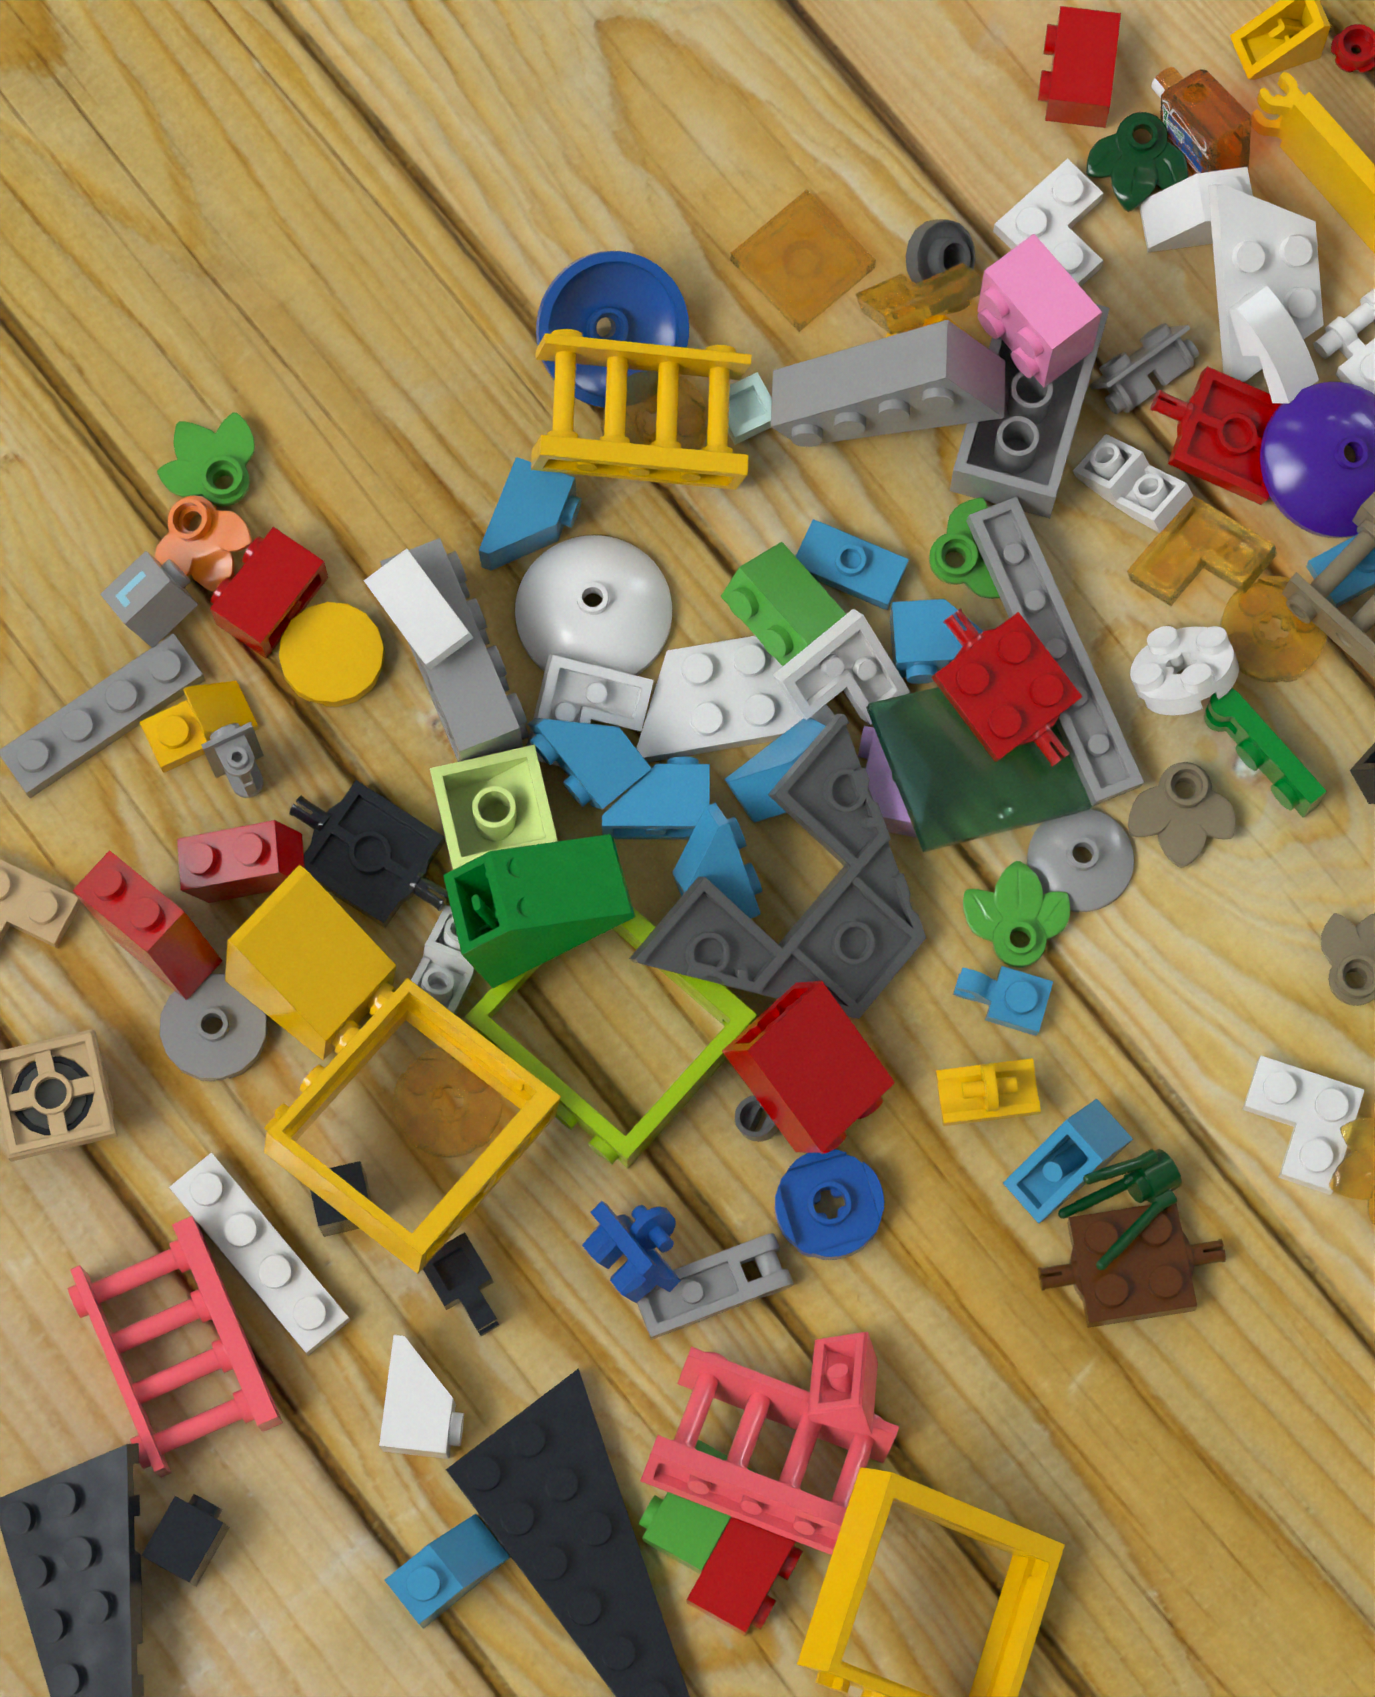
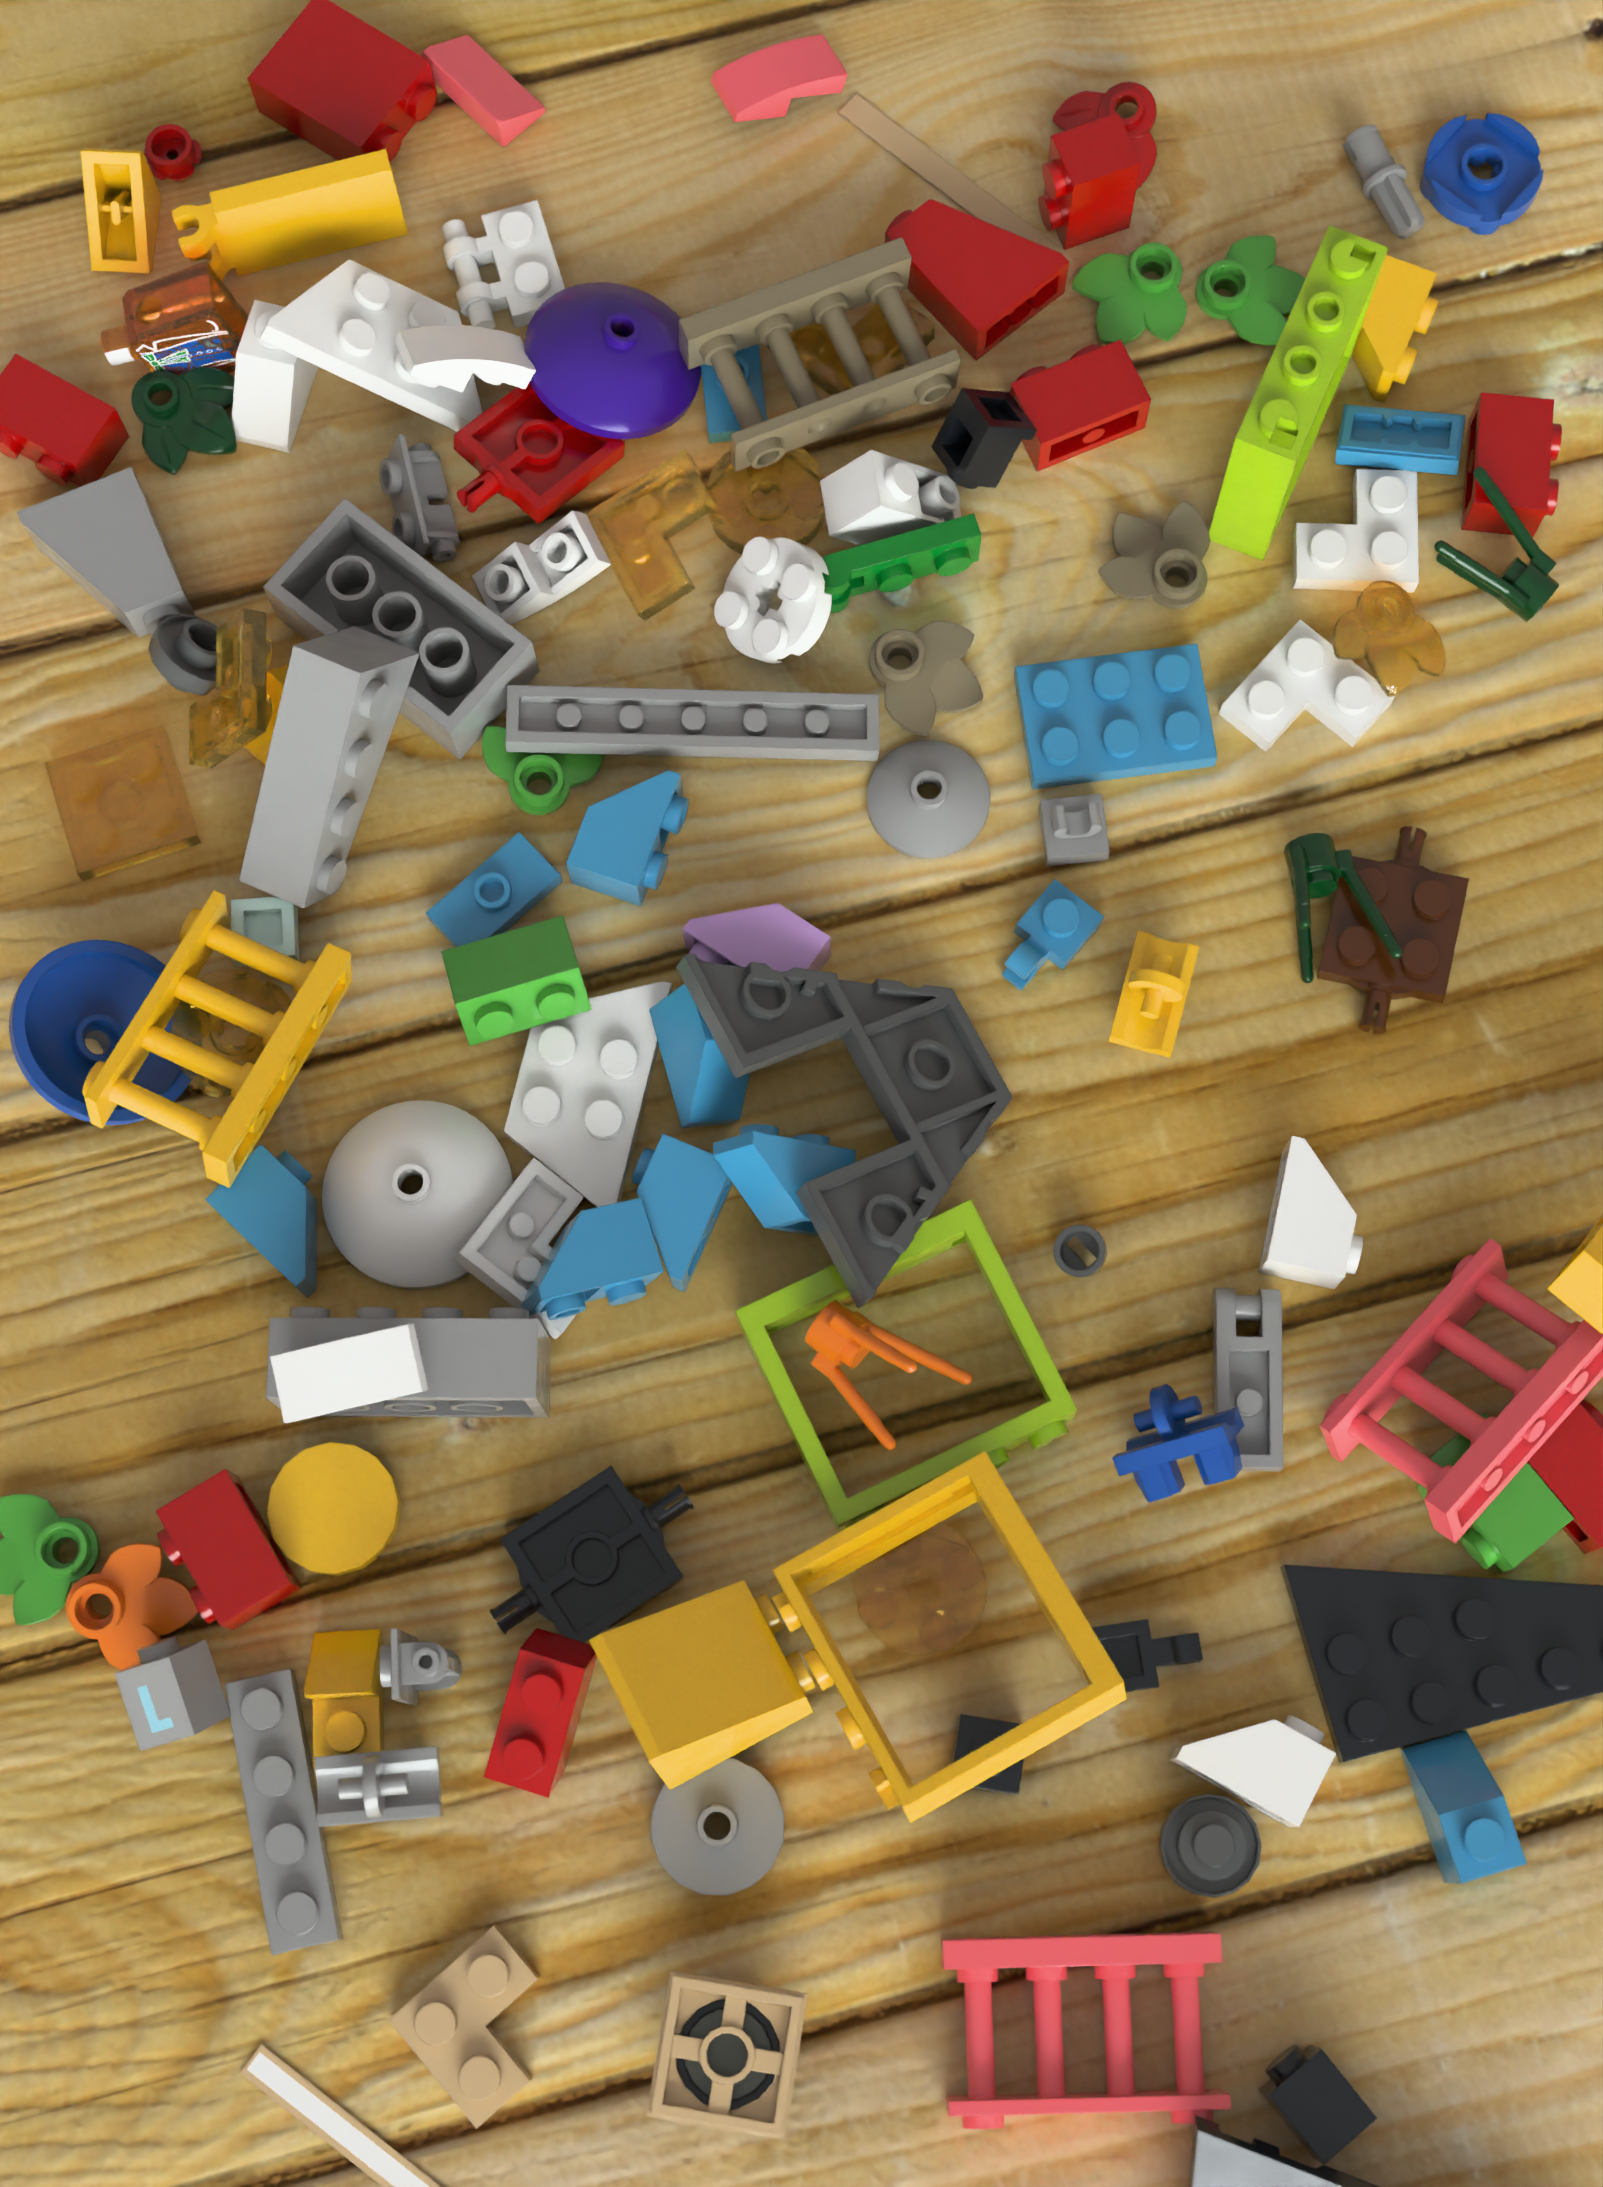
camera: 65 degrees left, 0 degrees up
(143, 771) = (378, 1786): none -> light grey hips
(147, 925) = (575, 1853): red brick -> none
(259, 1254) = (1006, 1879): white plate -> none
(342, 1391) = (1209, 1845): none -> dark grey plate
(443, 968) = (753, 1517): white slope -> none
(492, 804) = (612, 1395): yellowish green slope -> none
(536, 903) = (748, 1385): green slope -> none
(604, 964) = (847, 1338): none -> orange plant
(809, 1068) = (1055, 1166): red brick -> none
(812, 1231) = (1233, 1191): blue plate -> none
(839, 660) = (612, 940): white plate -> none
(844, 1383) = (1419, 1279): coral slope -> none
(854, 1284) = (1309, 1223): none -> white slope
(955, 785) = (778, 850): clear green piece -> none
(1000, 160) = (112, 549): none -> light grey slope
(1006, 687) = (717, 782): red plate -> none
(1016, 907) = (957, 883): bright green plate -> none
(1037, 311) = (322, 557): bright pink brick -> none
(1050, 214) = (213, 545): white plate -> none
(1059, 1164) = (1259, 944): dark azure slope -> none
(1103, 981) = (1073, 830): none -> light grey tile
(1215, 976) = (1115, 716): none -> dark azure plate
(1312, 724) = (885, 498): none -> white slope

